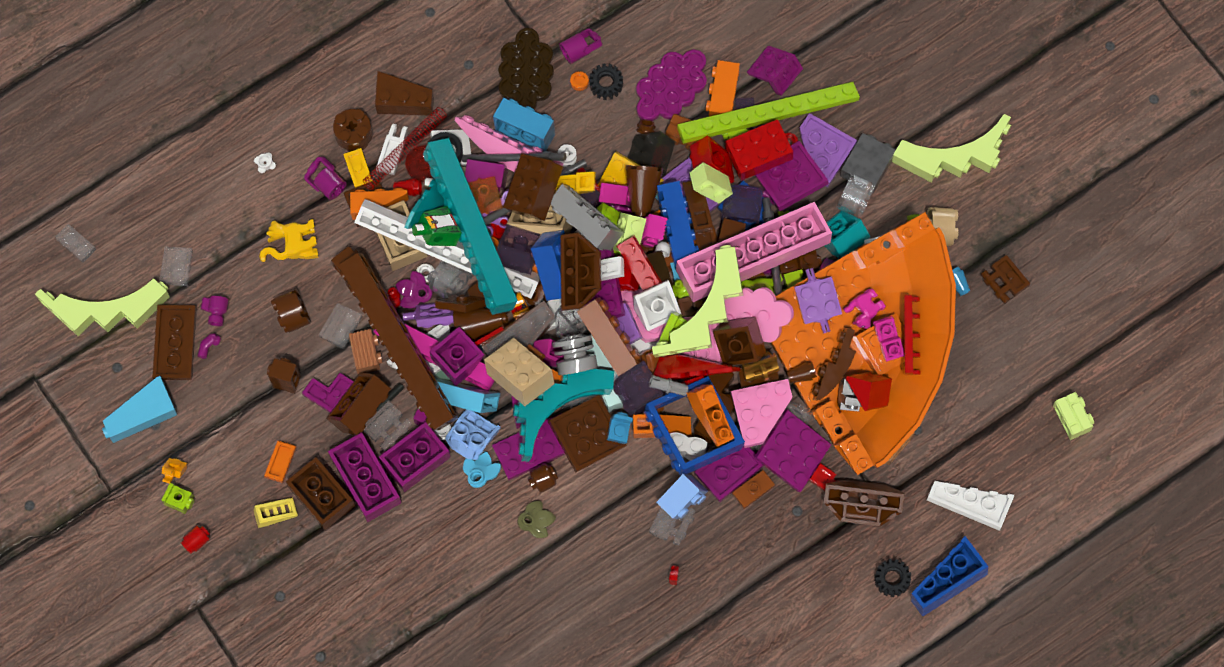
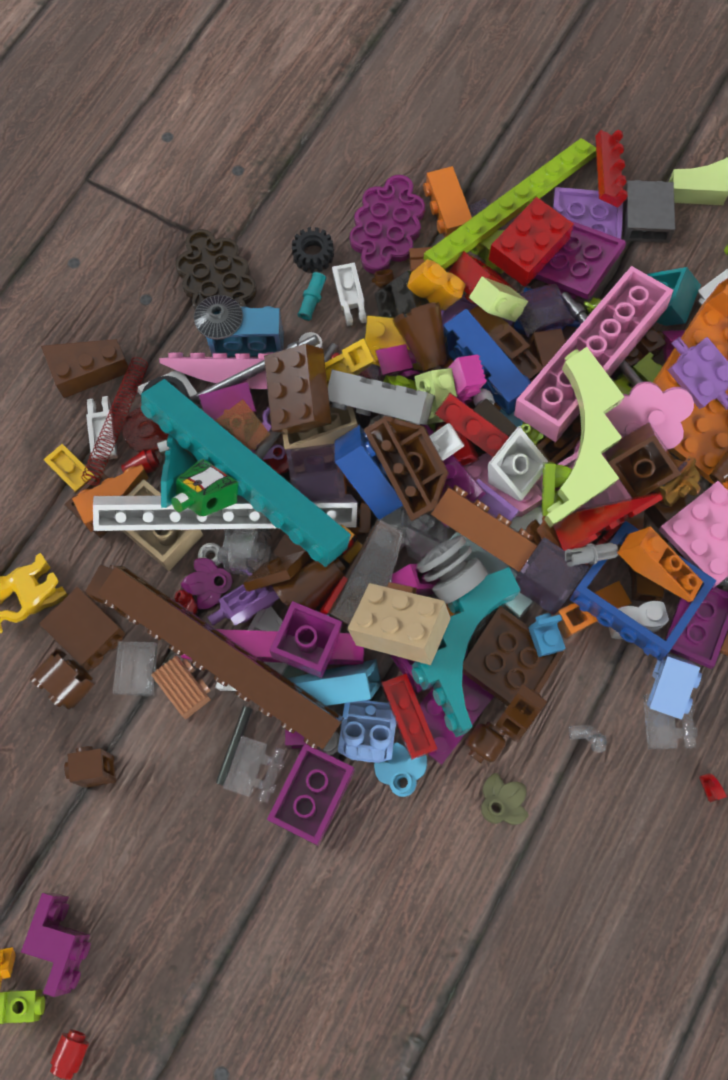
camera: 25 degrees left, 0 degrees up
(216, 470) = (56, 944): none -> magenta bracket
(262, 522) = (137, 966): light yellow slope -> none
(280, 461) = (137, 884): orange tile -> none
(318, 284) = (82, 629): none -> reddish brown brick
(320, 493) = (210, 906): reddish brown brick -> none
(324, 396) = (166, 767): magenta plate -> none
(327, 180) = (36, 499): magenta piece -> none
(352, 120) = (41, 426): reddish brown brick -> none
(359, 404) = (206, 760): reddish brown brick -> none
(364, 477) = (259, 854): magenta brick -> none
(501, 437) = (409, 716): none -> red plate
(508, 115) = (222, 324): none -> dish
(566, 465) = (520, 713): none -> reddish brown slope
(576, 46) = (262, 225): magenta piece -> none
(579, 81) = (281, 263): orange tile -> none
(587, 117) = (311, 296): none -> teal pin
(615, 504) = (591, 734): none -> clear arm
(616, 125) = (349, 291): none -> white hinge
(675, 155) = (436, 284): none -> light orange brick
(777, 68) = (491, 155): magenta bracket -> none
(854, 196) = (659, 247): clear brick -> none
(857, 116) = (610, 167): none -> red hinge

